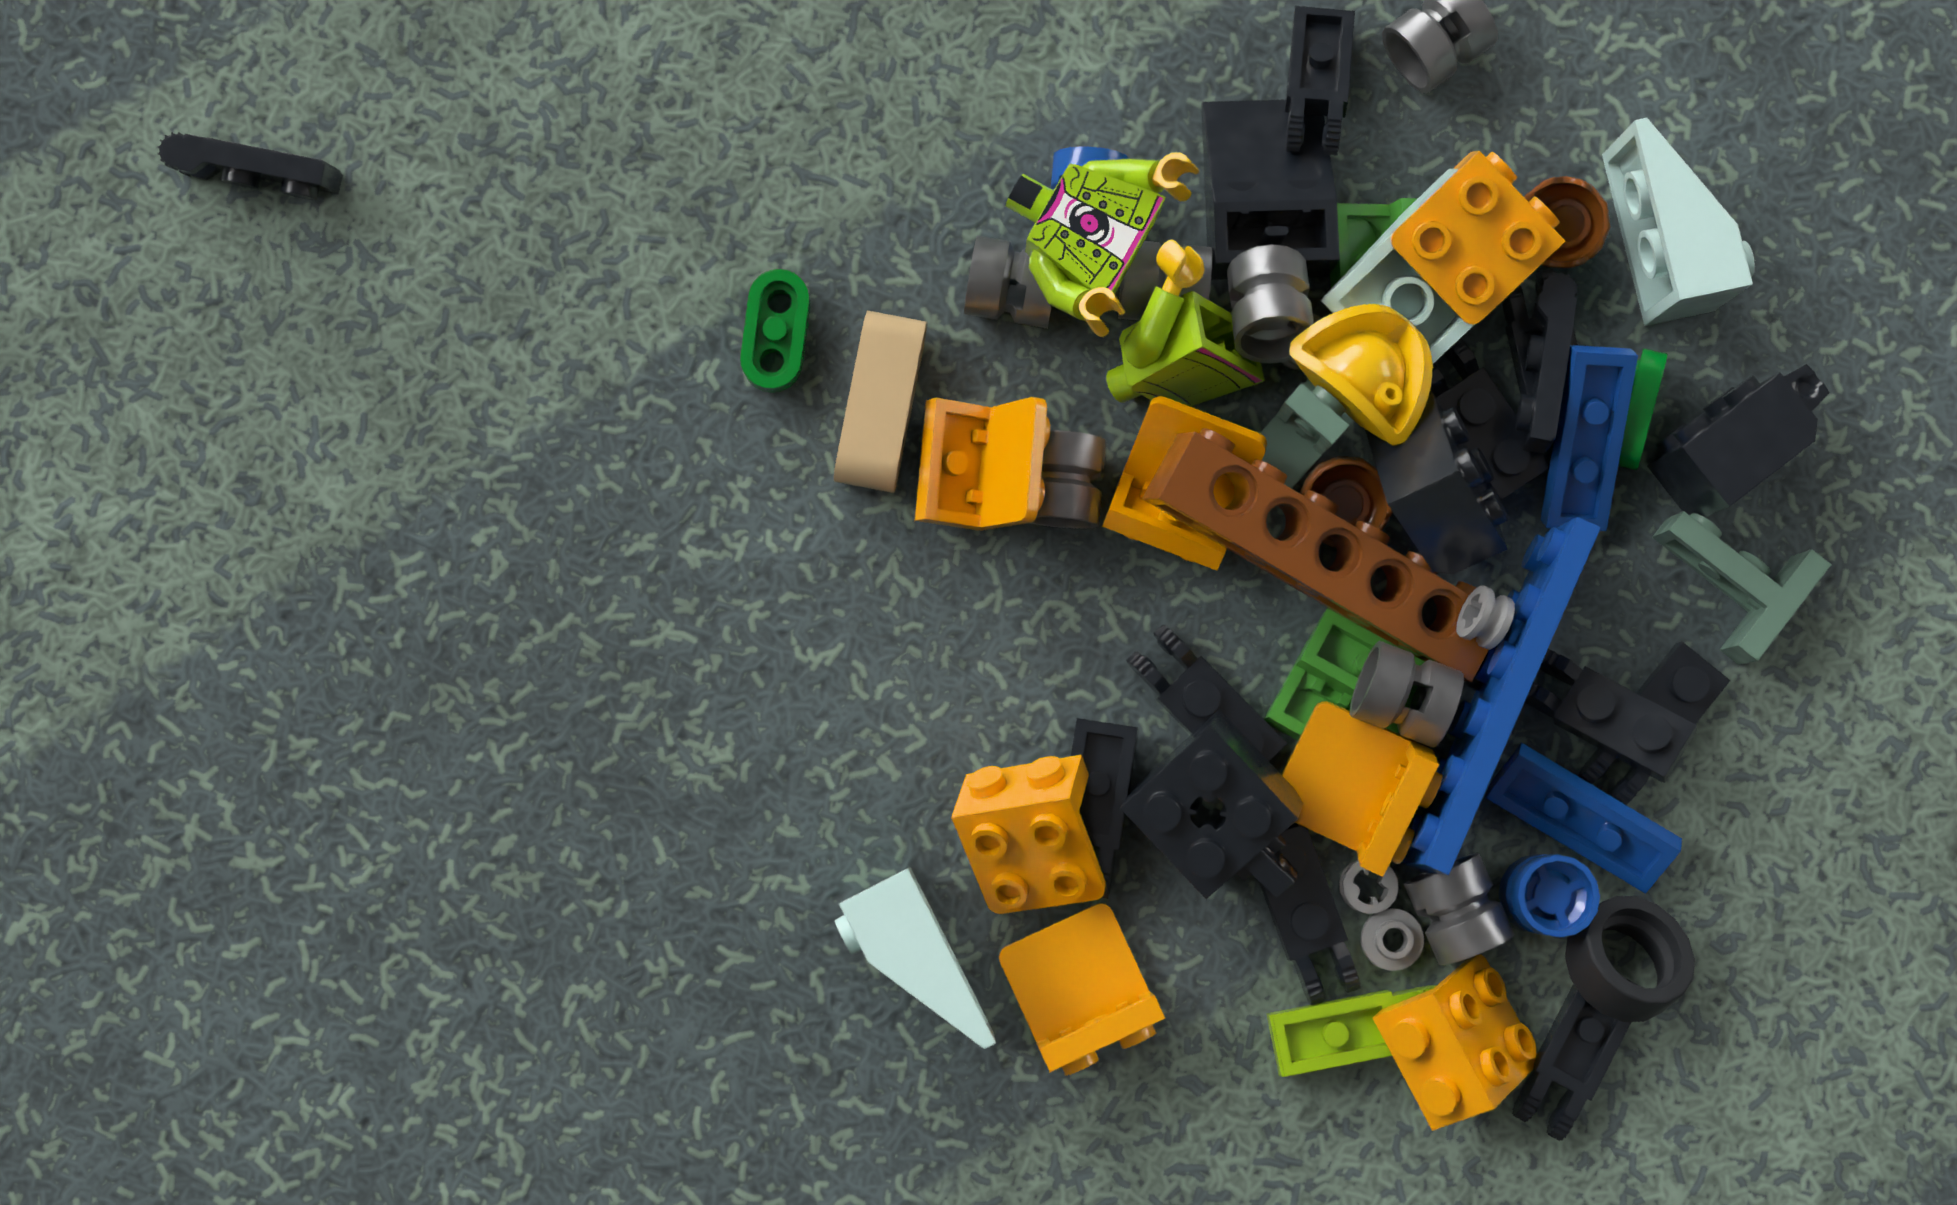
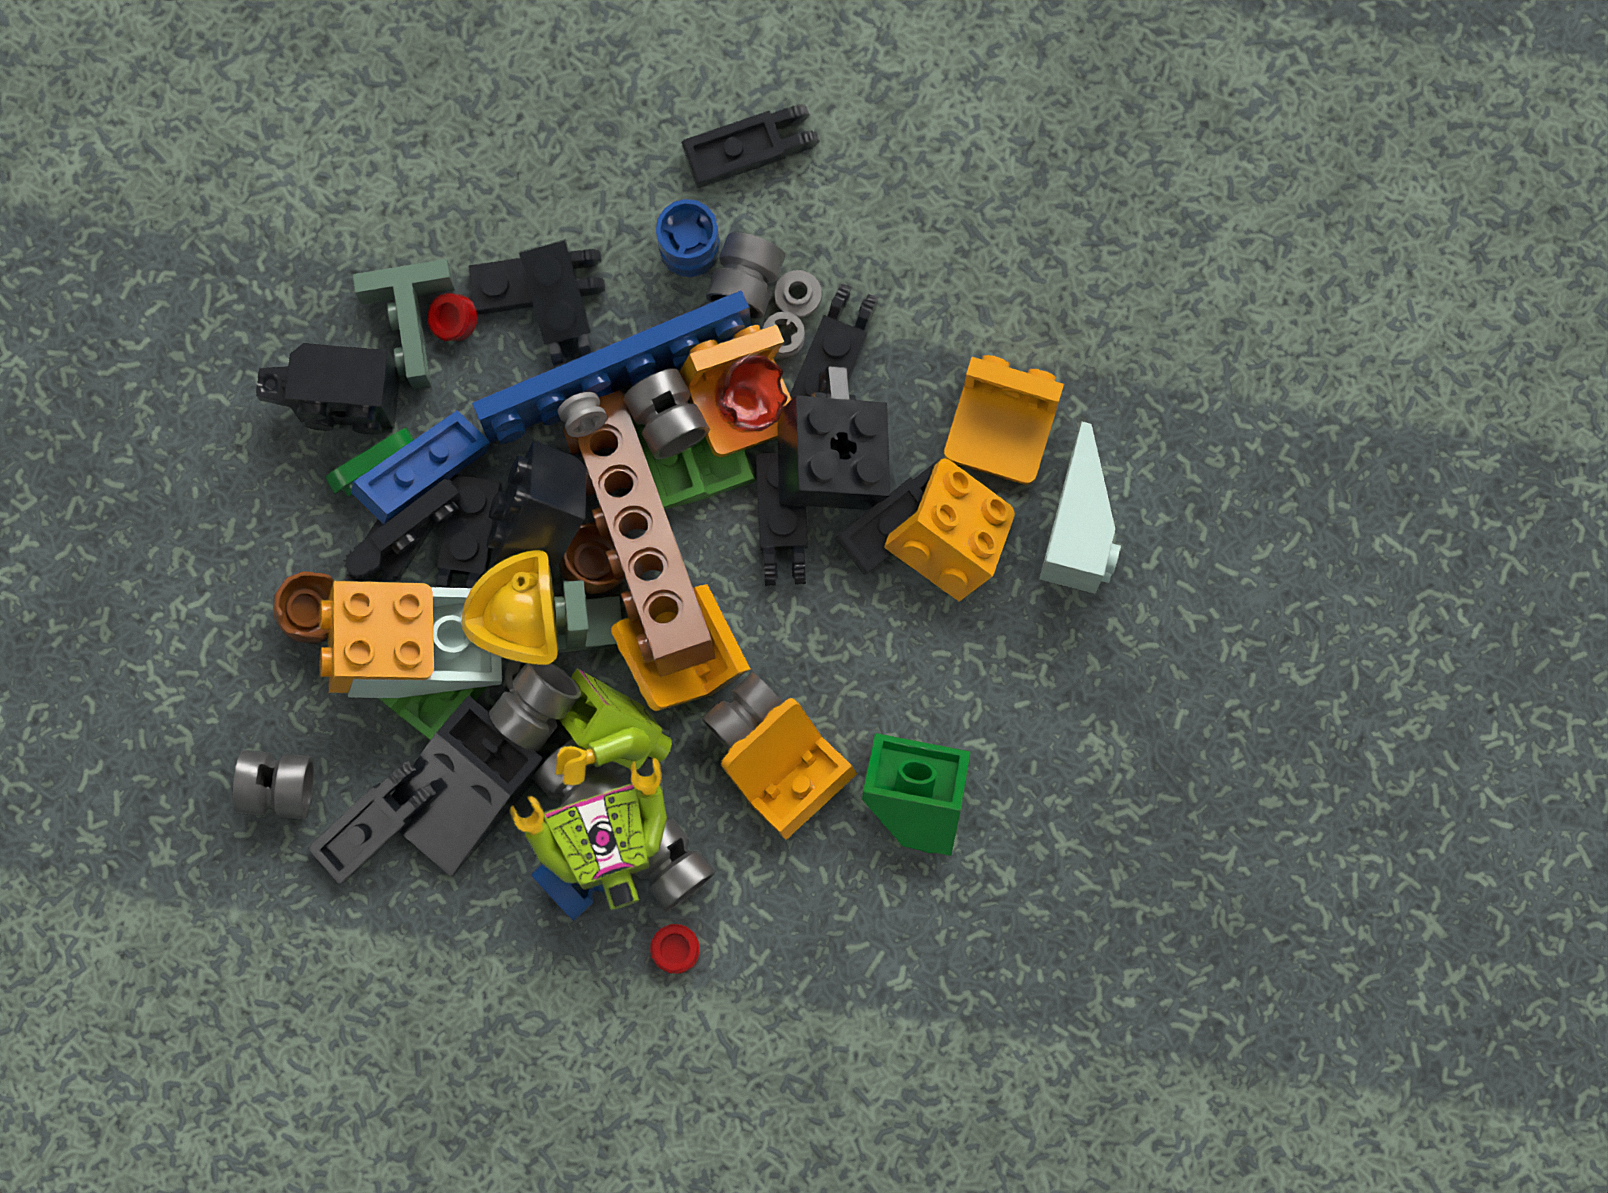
camera: 130 degrees left, 5 degrees down
(775, 332) = (837, 965): green plate -> none
(846, 553) = (917, 791): none -> green slope
(880, 401) = (812, 864): tan beam -> none
(939, 218) = (675, 949): none -> red tile
(1332, 1032) = (868, 265): lime hinge -> none
(1343, 785) = (750, 394): none -> clear red hair
(1459, 1044) = (815, 201): light orange bracket -> none
(1584, 818) = (625, 262): blue plate -> none
(1661, 939) = (646, 158): black tyre -> none
(1673, 229) = (258, 533): light aqua slope -> none
(1696, 616) = (452, 317): none -> red tile

